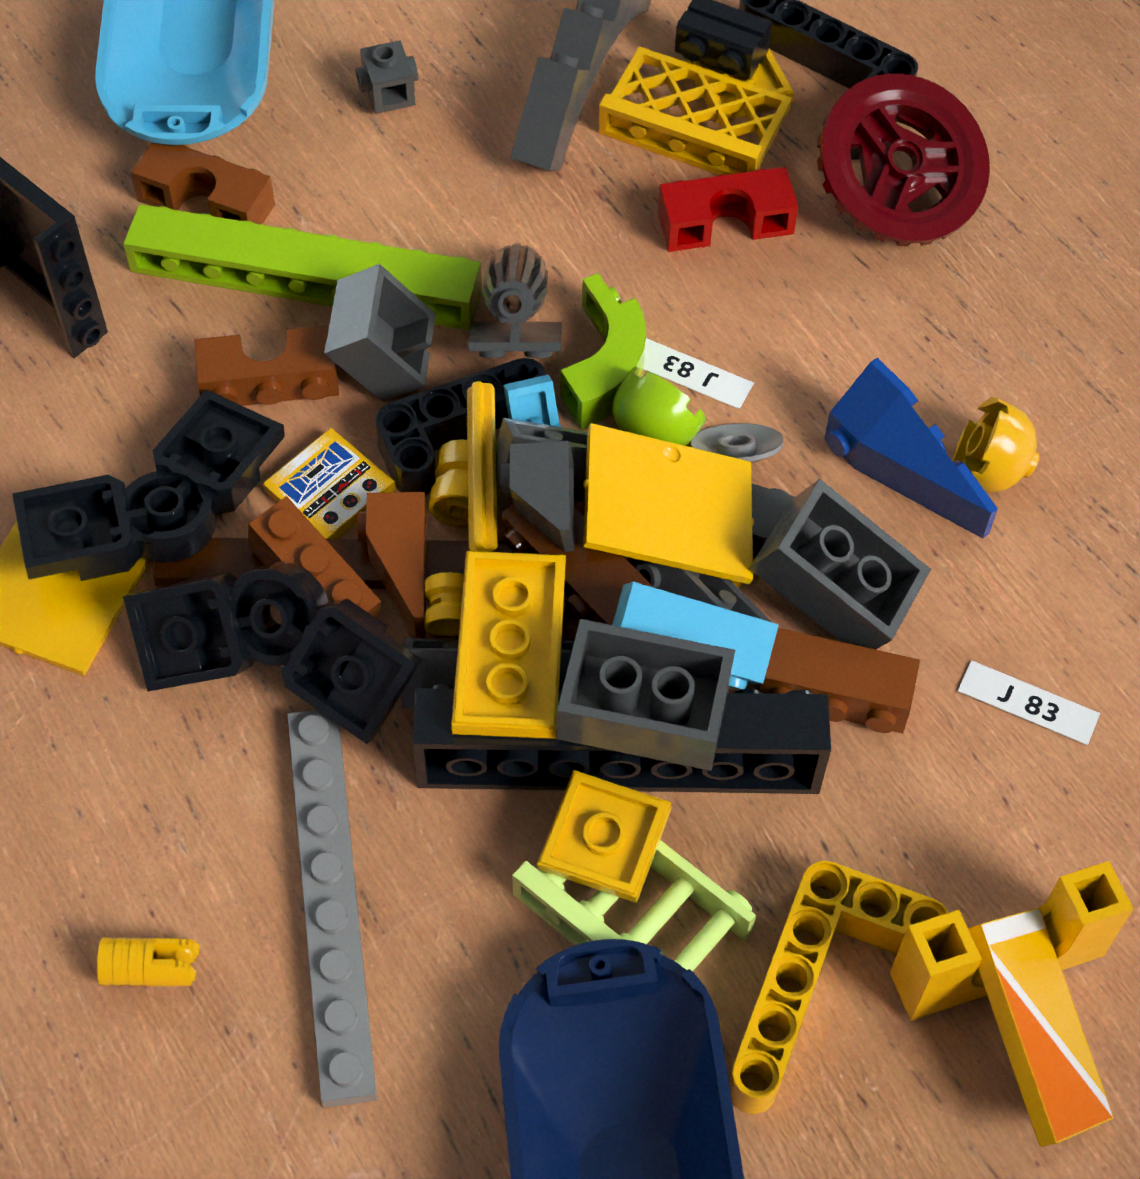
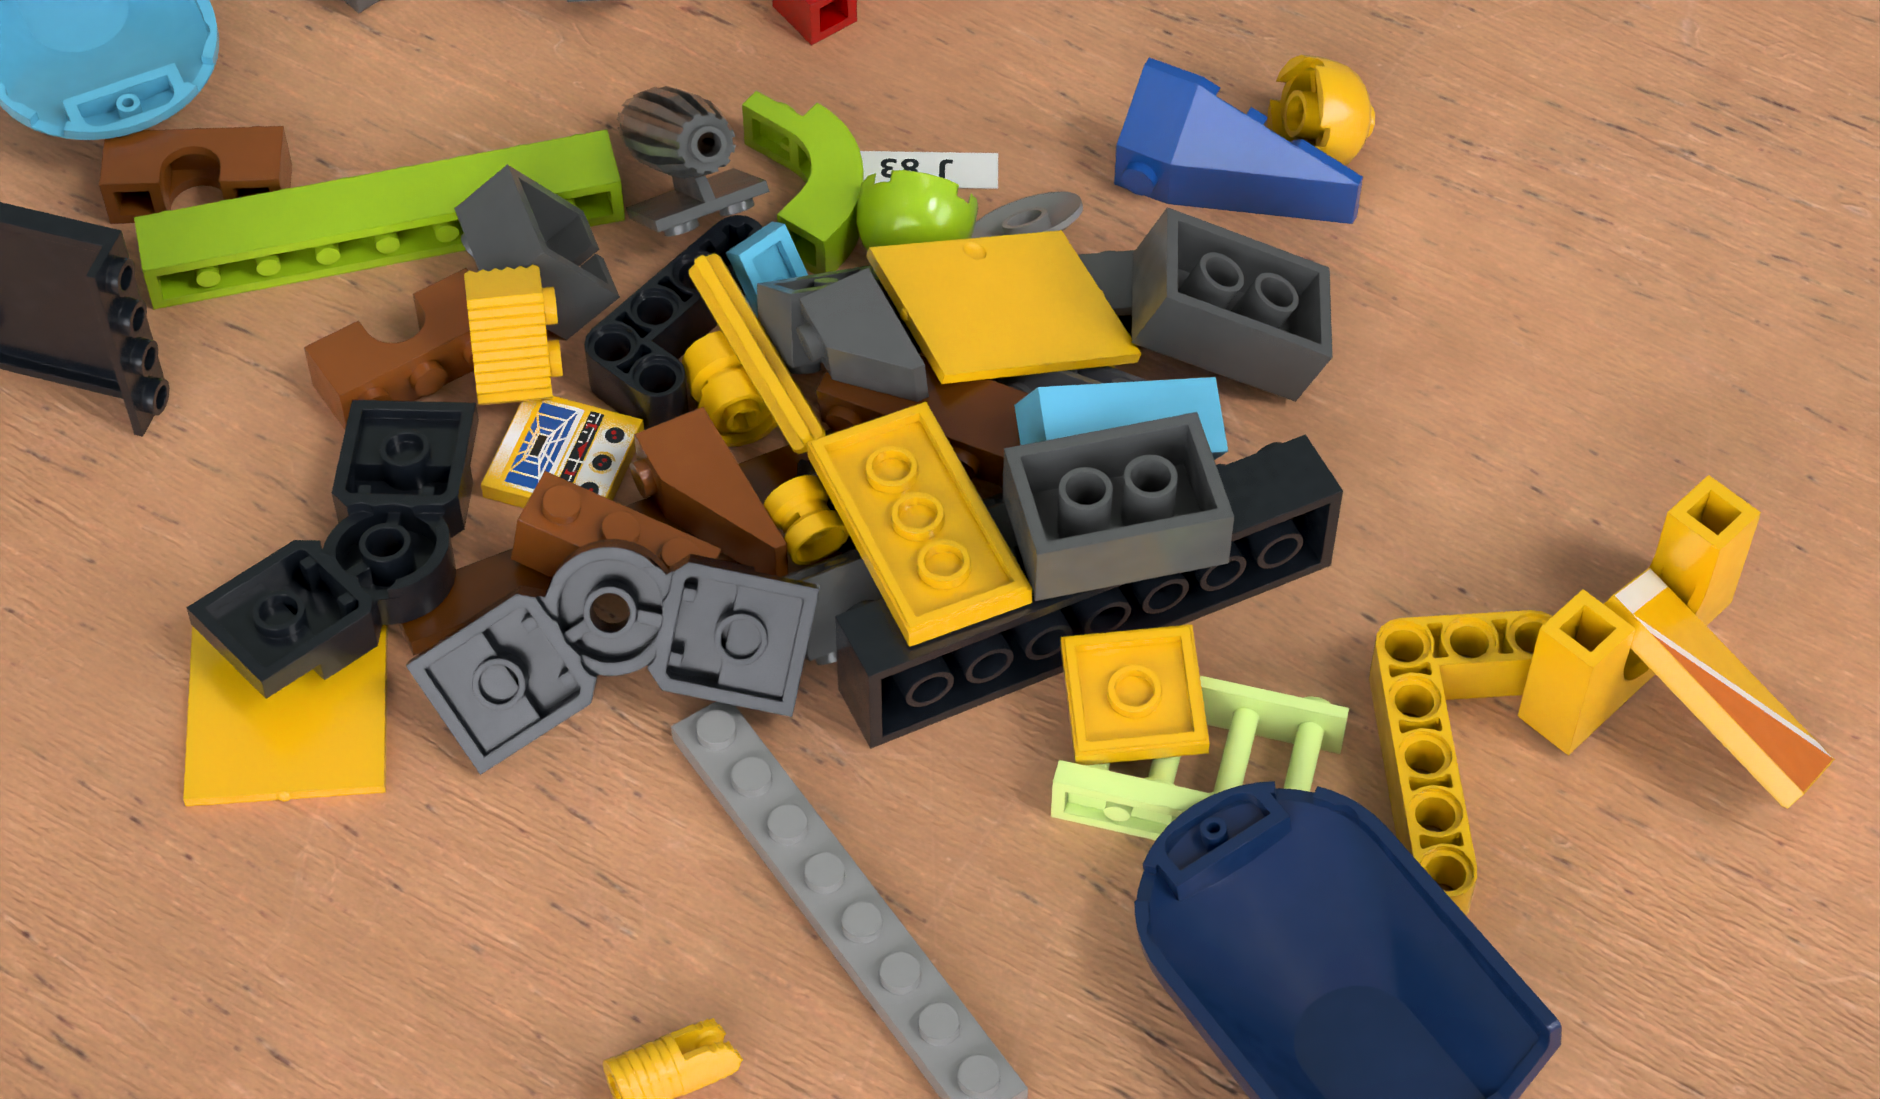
camera: 25 degrees left, 5 degrees down
(326, 386) = (510, 336): none -> yellow brick
(859, 681) = (1336, 412): dark orange brick -> none
(1029, 702) = (1502, 376): white sticker -> none

